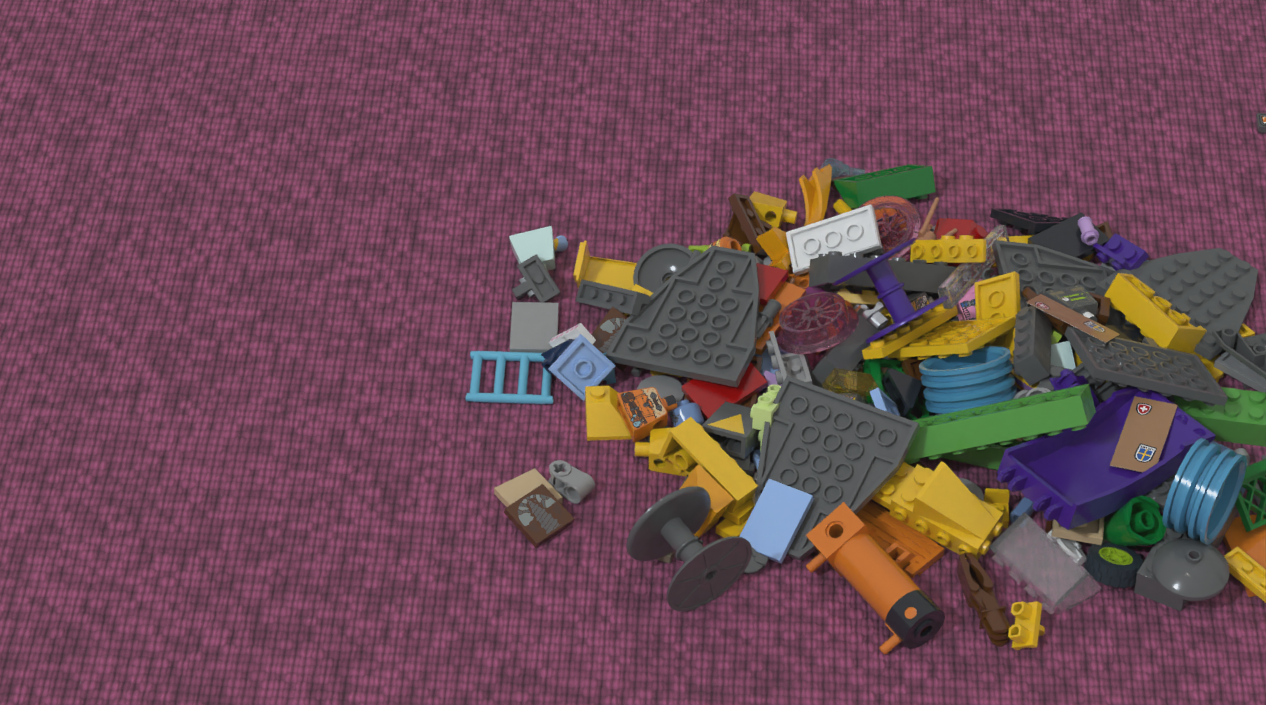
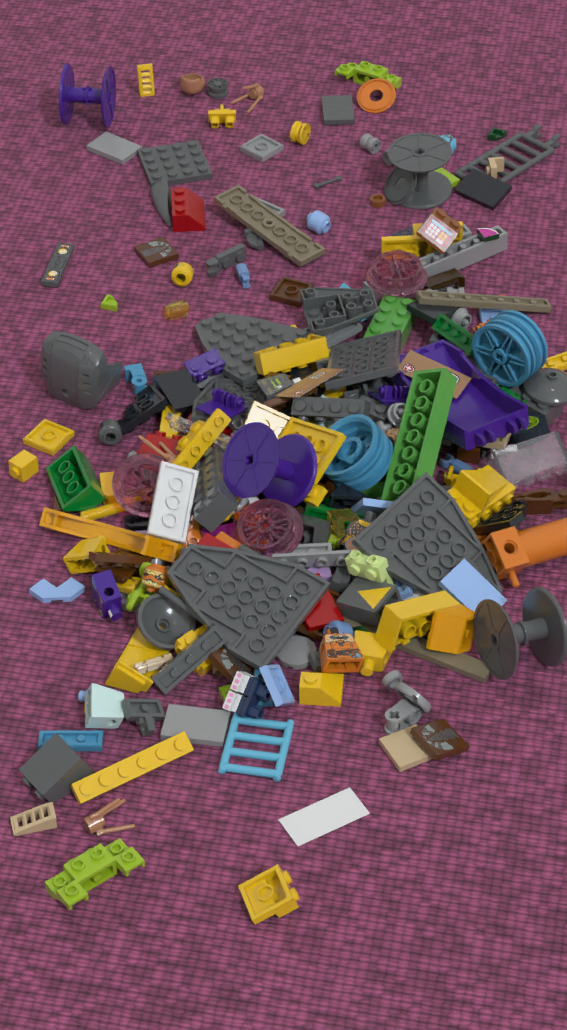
camera: 80 degrees left, 0 degrees up
(300, 402) = (269, 894): none -> yellow plate
(319, 273) = (91, 870): none -> lime bracket
(385, 233) = (44, 812): none -> tan slope
(385, 272) = (95, 822): none -> nougat plant
(422, 440) = (323, 816): none -> white sticker
(448, 234) = (54, 769): none -> dark grey slope
(462, 287) = (131, 767): none -> yellow plate
(497, 243) = (77, 739): none -> dark azure tile
(591, 482) = (413, 696): none -> light grey tile
(610, 278) = (153, 663): none -> tan axle
(627, 471) = (391, 679): none -> light grey tile
(703, 227) = (108, 602): none -> dark purple torso
(711, 200) = (67, 591): none -> light blue tile
(839, 168) = (35, 511): clear light blue plate -> none
(906, 146) = (23, 466): none -> yellow brick
(912, 540) = (505, 518): none -> black plate
(970, 162) = (48, 437): none -> yellow tile
(984, 201) = (109, 432): none -> dark grey head
(1021, 260) = (225, 401): none -> dark purple hinge
(1063, 129) = (77, 370): none -> dark grey piece
(1089, 234) = (181, 374): lavender pin -> none
(1099, 211) = (135, 375): none -> dark azure leg
(1242, 176) = (109, 303): none -> lime tile
(1244, 229) = (176, 309): none -> clear yellow brick

